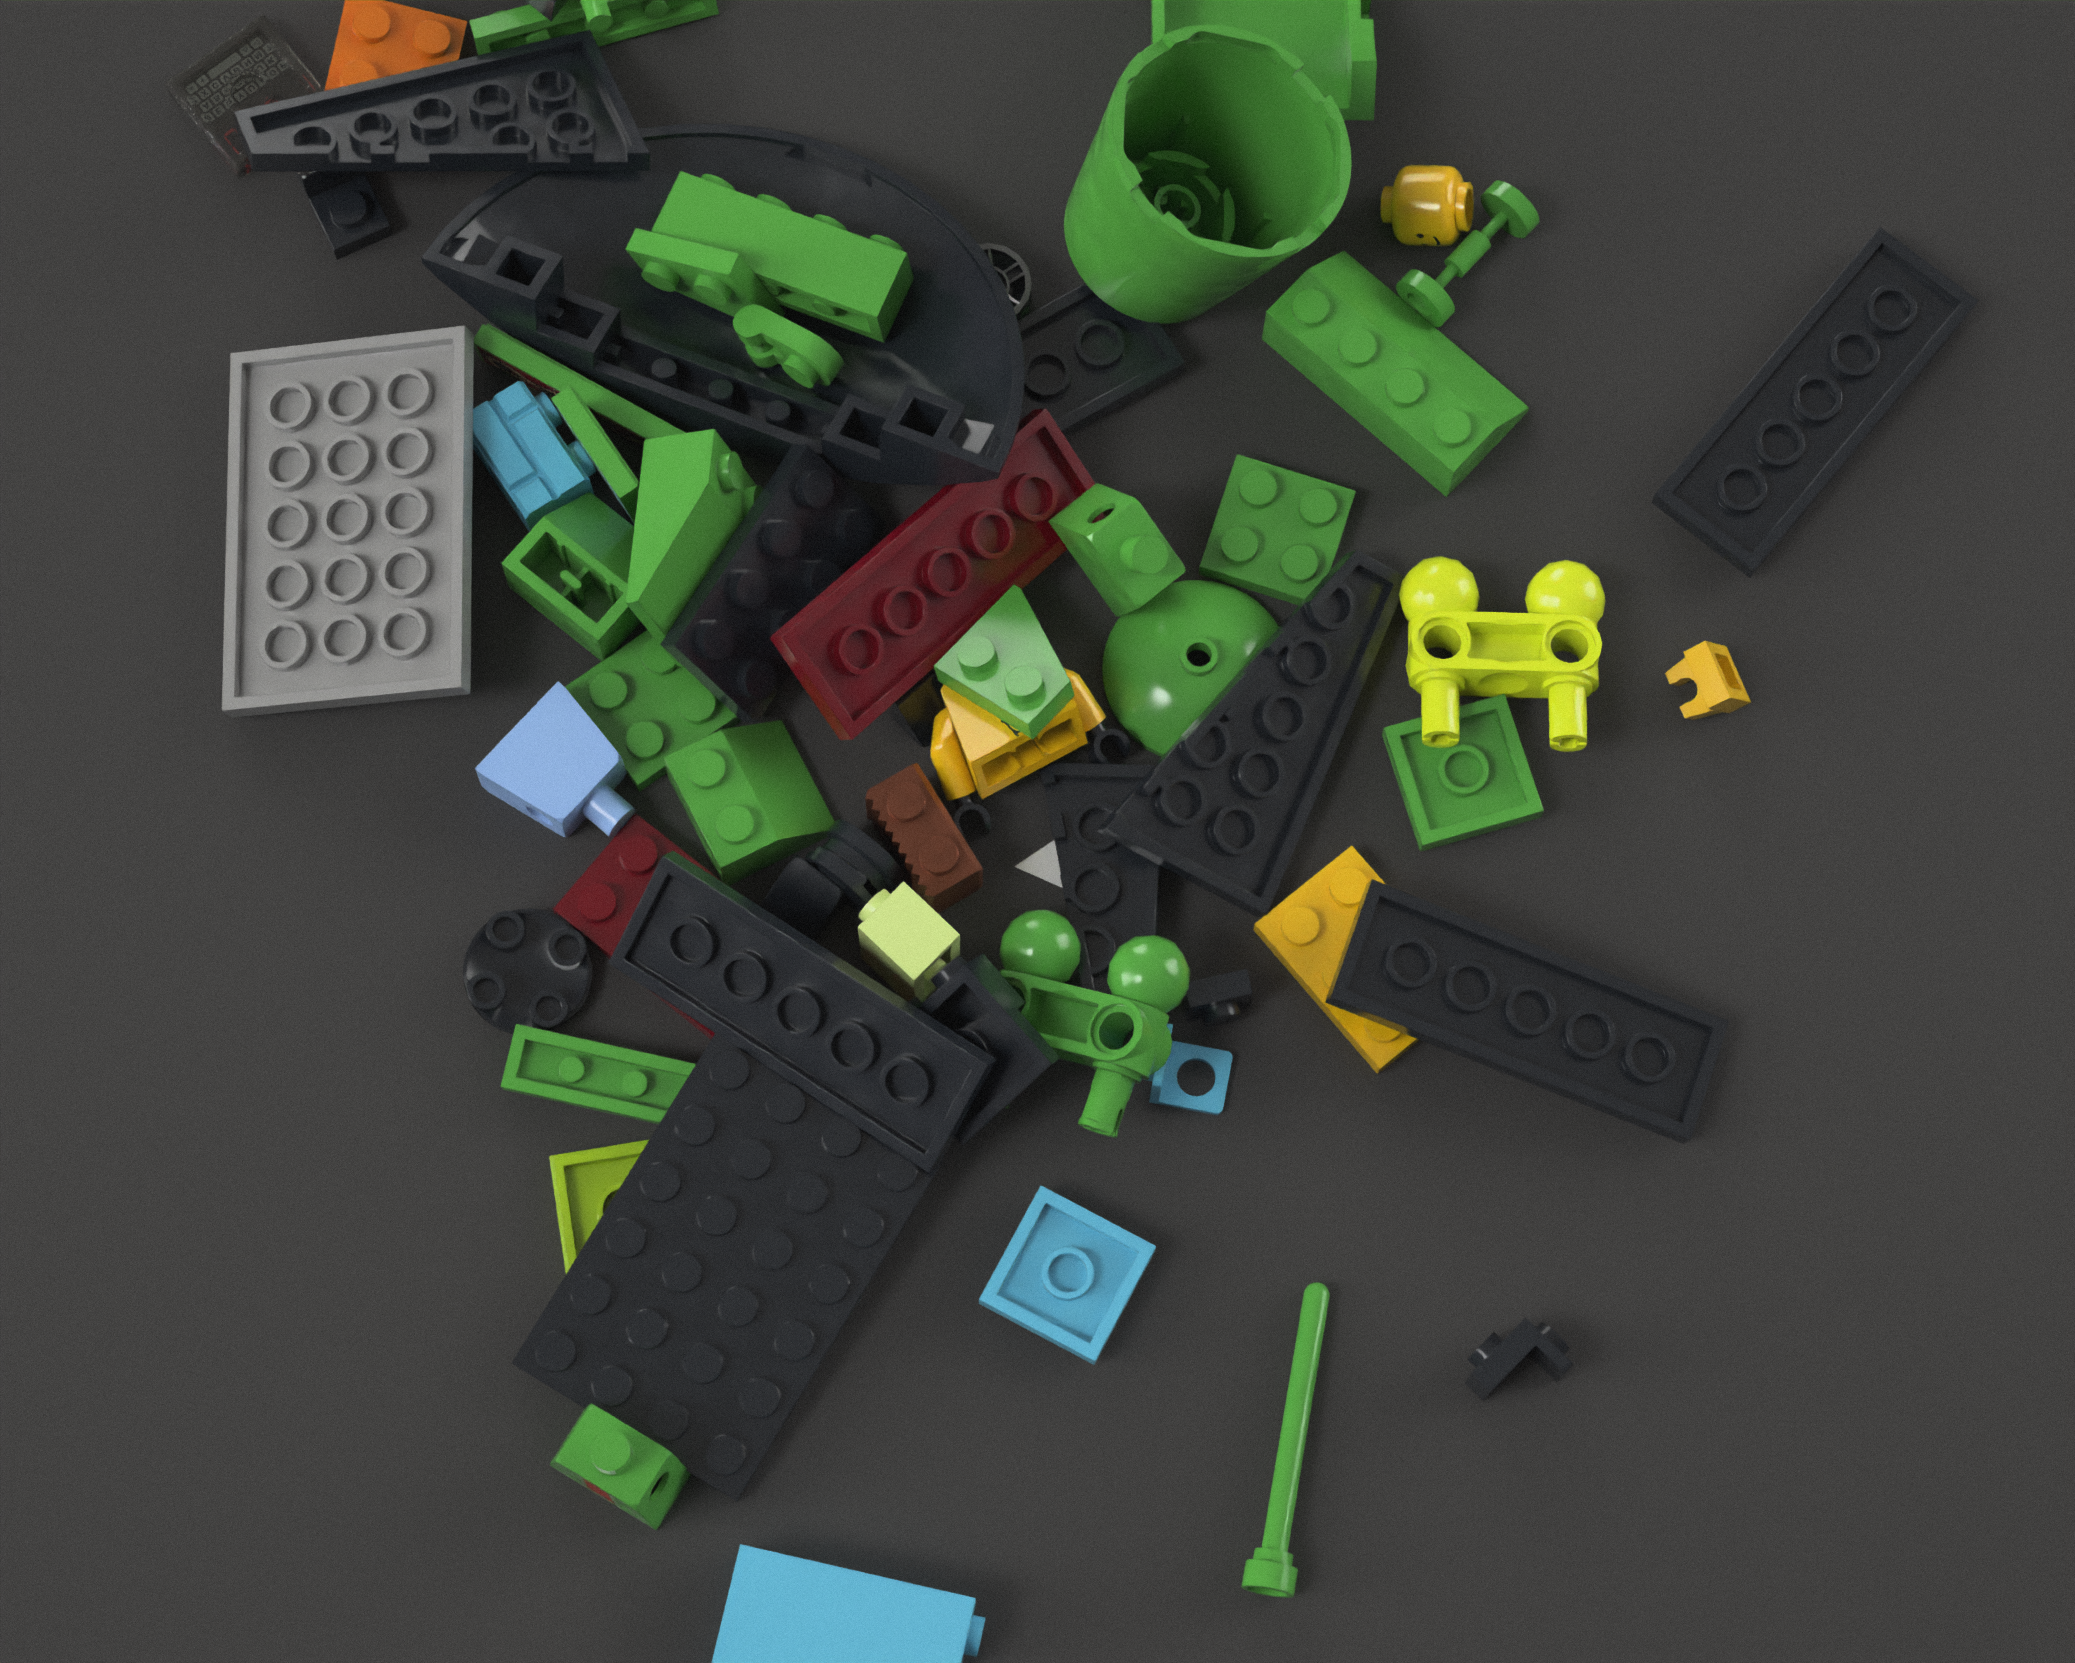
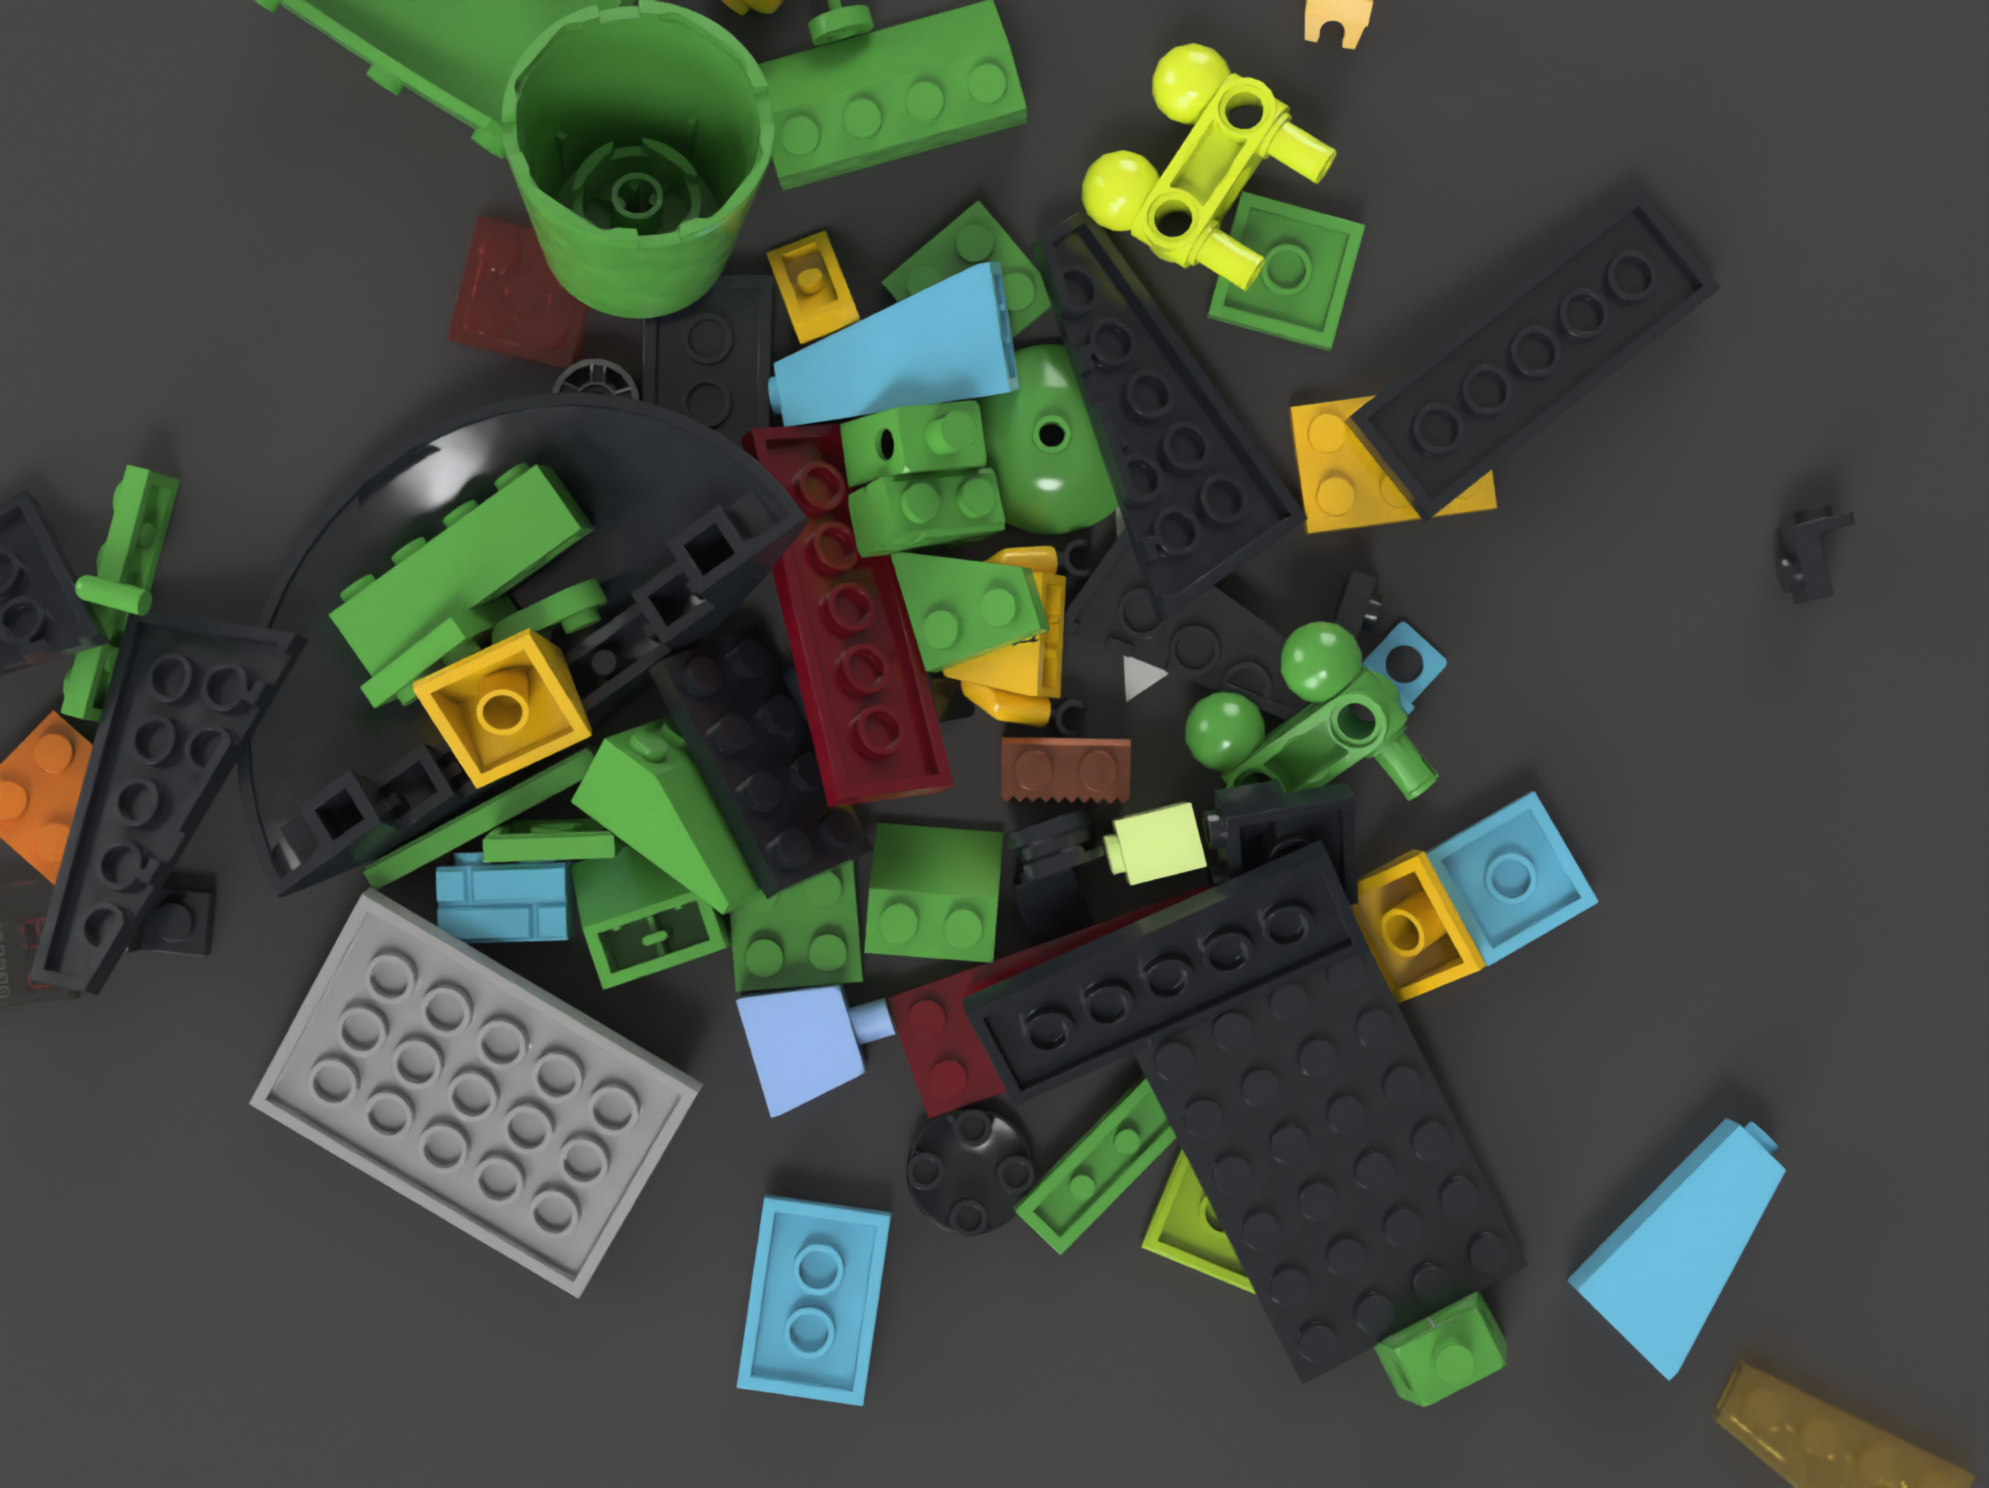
camera: 55 degrees left, 15 degrees up
(336, 907) = (814, 1300): none -> medium azure plate
(693, 346) = (505, 706): none -> yellow slope
(970, 1212) = (1413, 927): none -> yellow slope
(1028, 181) = (514, 301): none -> clear red plate
(1068, 591) = (926, 512): none -> bright green brick
(1193, 406) = (813, 288): none -> yellow slope
(1209, 510) = (918, 352): none -> medium azure slope
(1271, 1567) = (1851, 861): bright green piece -> none

